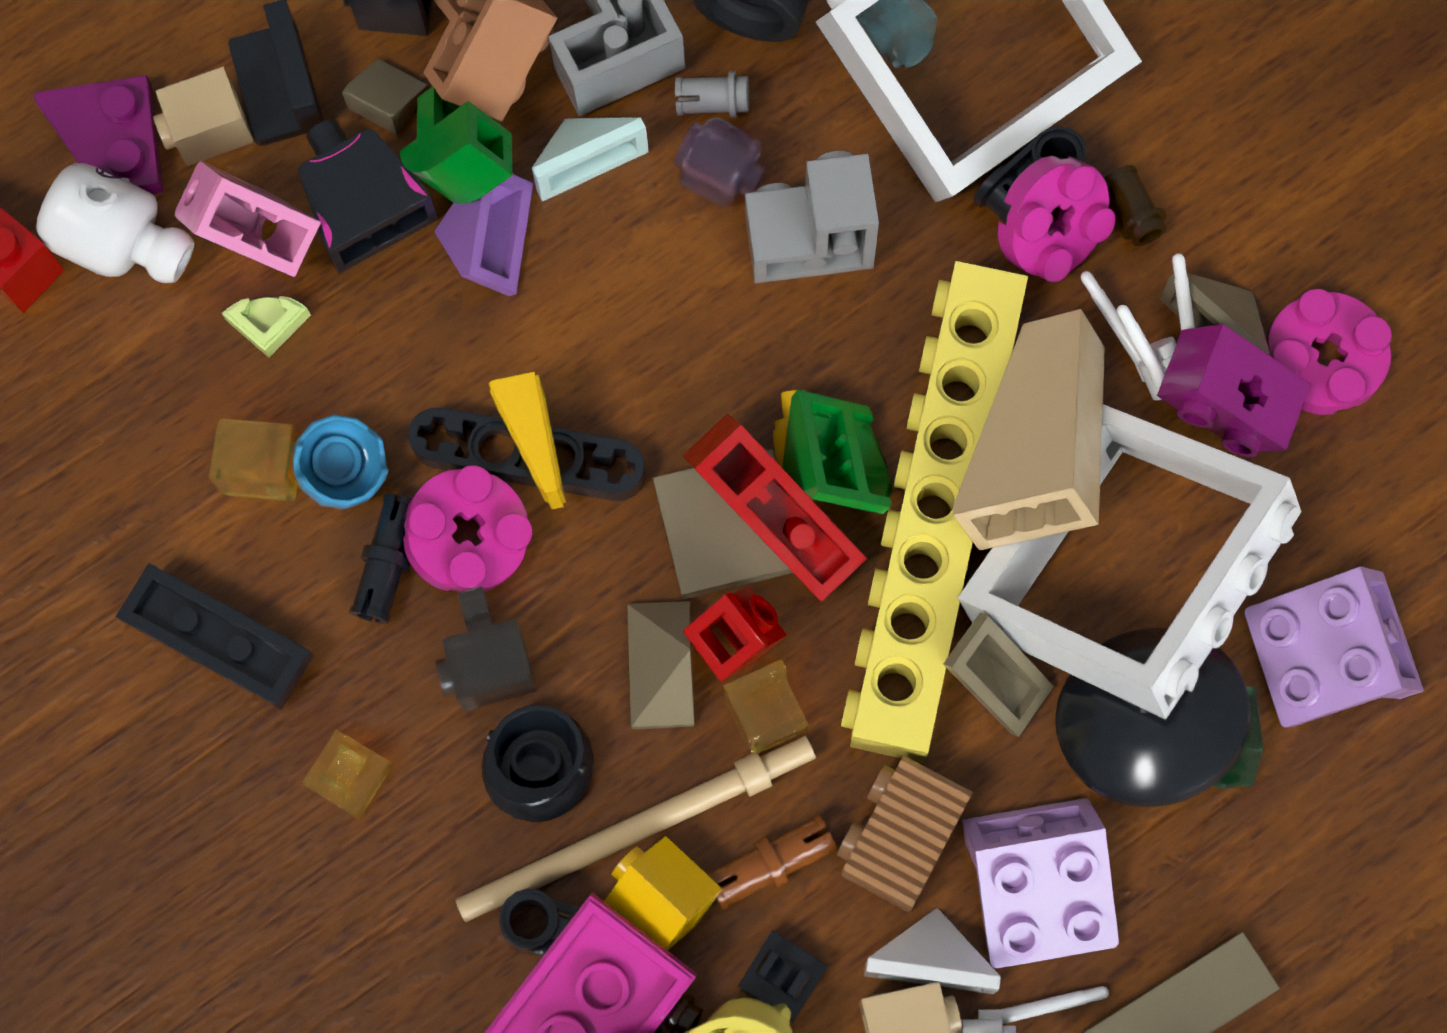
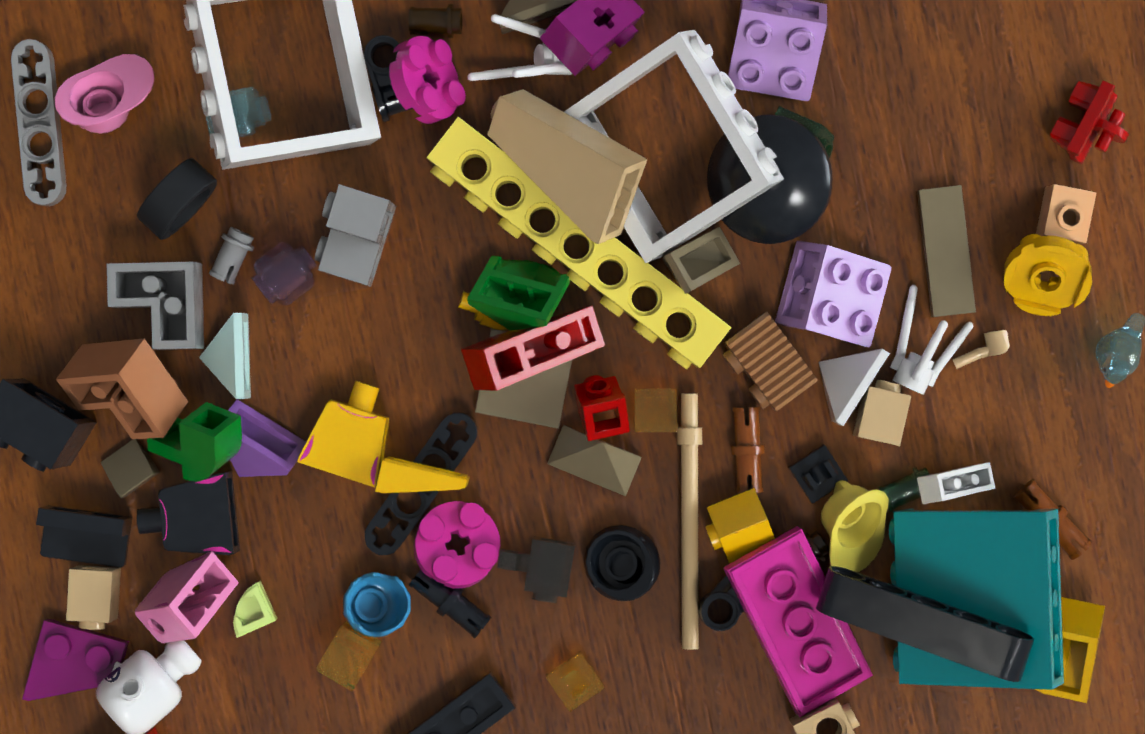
camera: 65 degrees left, 15 degrees up
(548, 329) = (349, 437): none -> yellow torso

